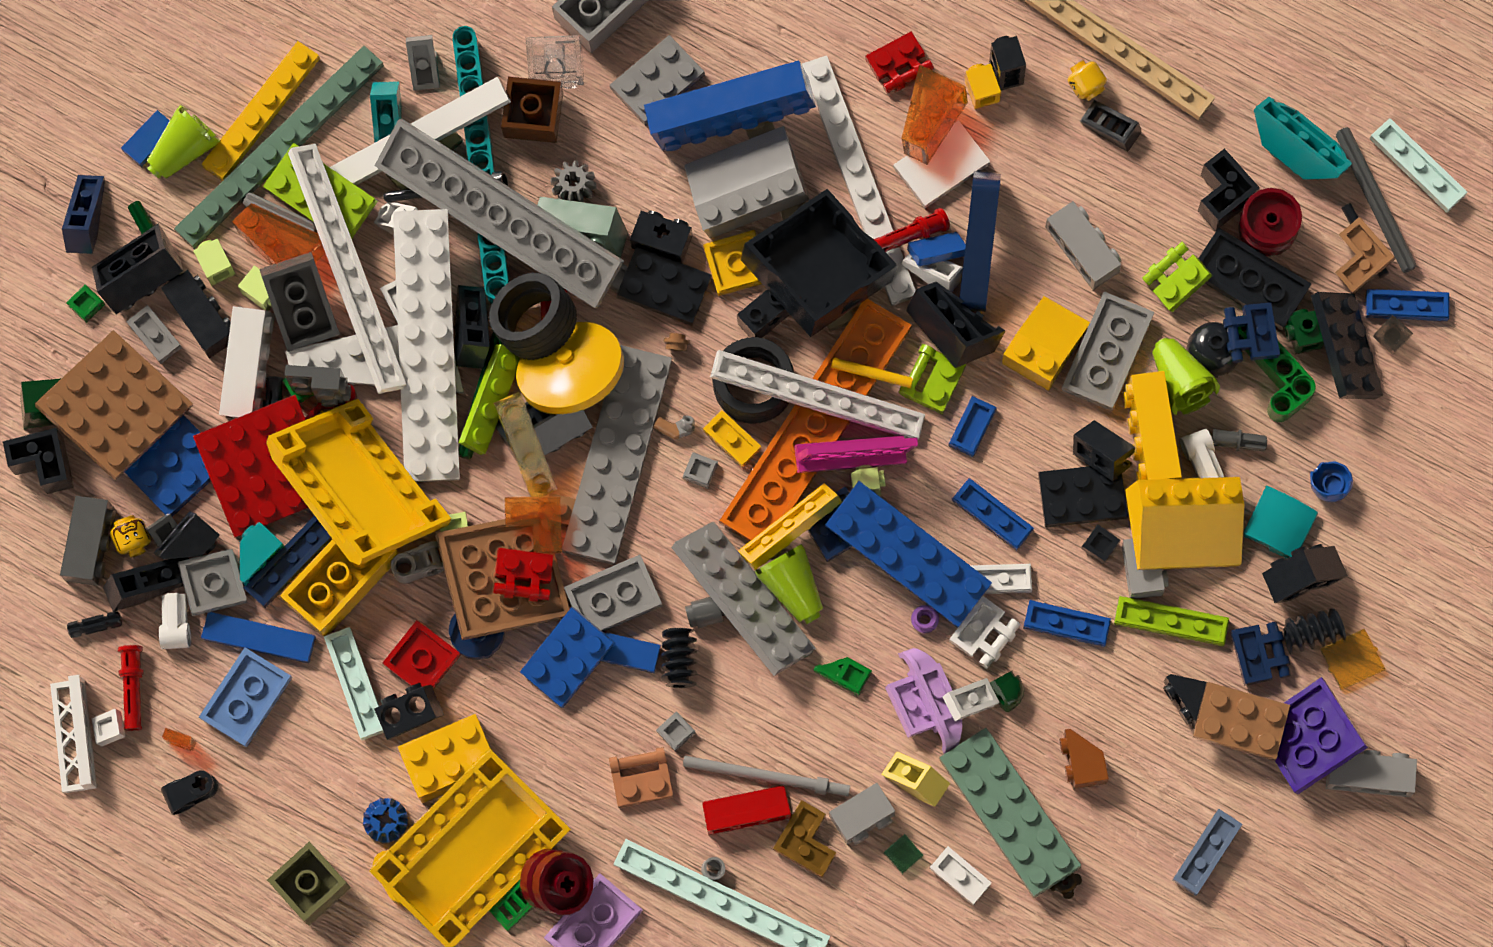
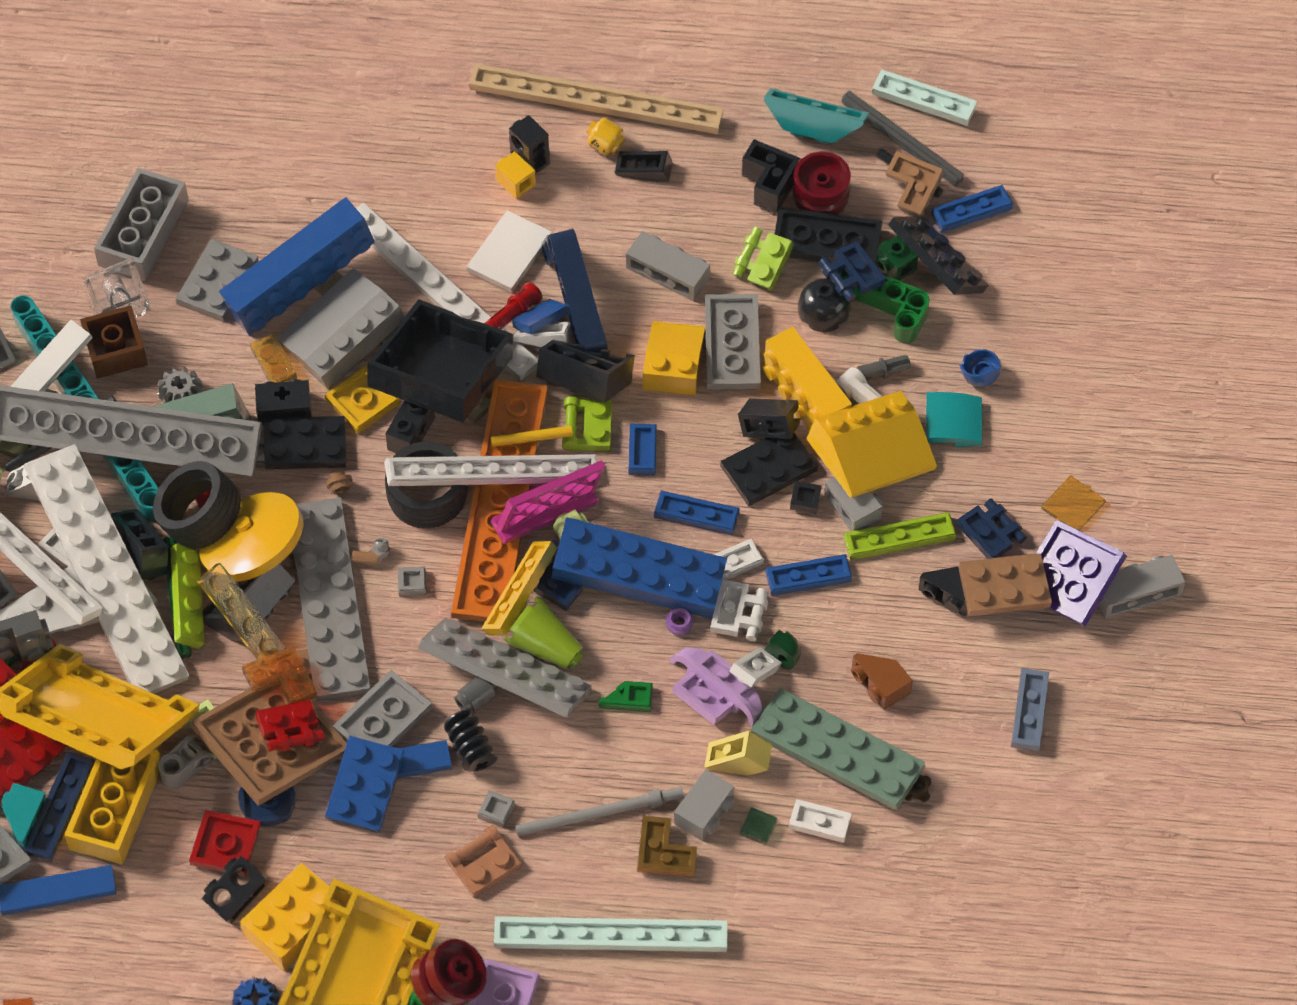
camera: 30 degrees left, 15 degrees down
(245, 697) = (68, 946): medium blue plate -> none
(354, 682) = (171, 890): light aqua plate -> none
(671, 189) = (273, 359): none -> clear yellow plate
(715, 864) = (588, 906): light grey hinge -> none
(732, 438) = (429, 542): yellow plate -> none
(746, 810) = (596, 849): red panel -> none
(895, 56) = (426, 181): red plate -> none
(931, 113) = (482, 209): clear orange wedge -> none
(1186, 378) = (817, 330): lime cone -> none
(1303, 572) = (994, 446): black brick -> none
(1313, 629) = (1027, 489): black piece -> none
(1392, 334) = (972, 234): clear smoke plate -> none

